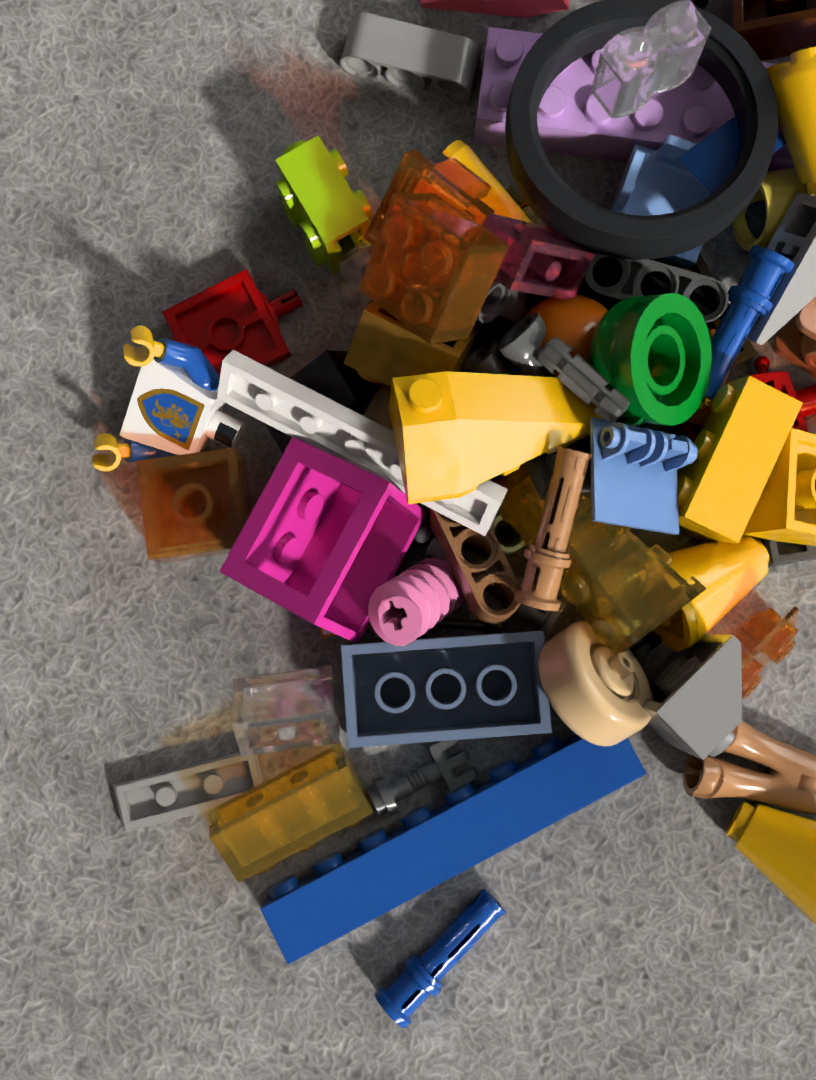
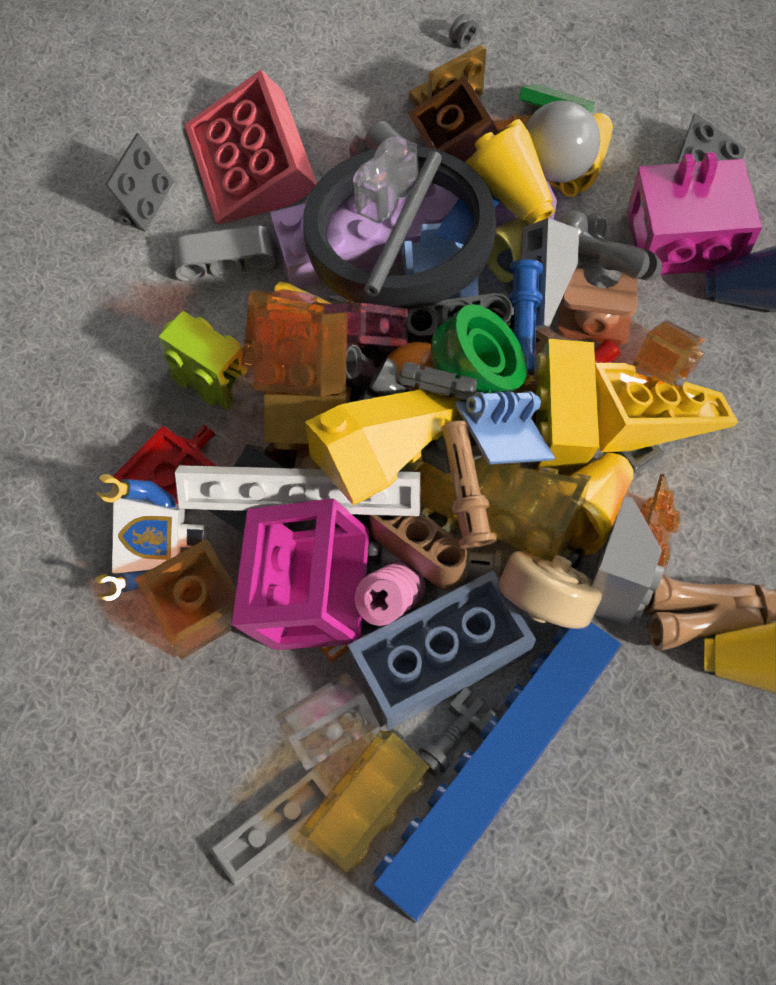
camera: 25 degrees left, 20 degrees down
(424, 973) = (531, 886): blue pin -> none
(643, 133) = (402, 224): none -> dark grey piece

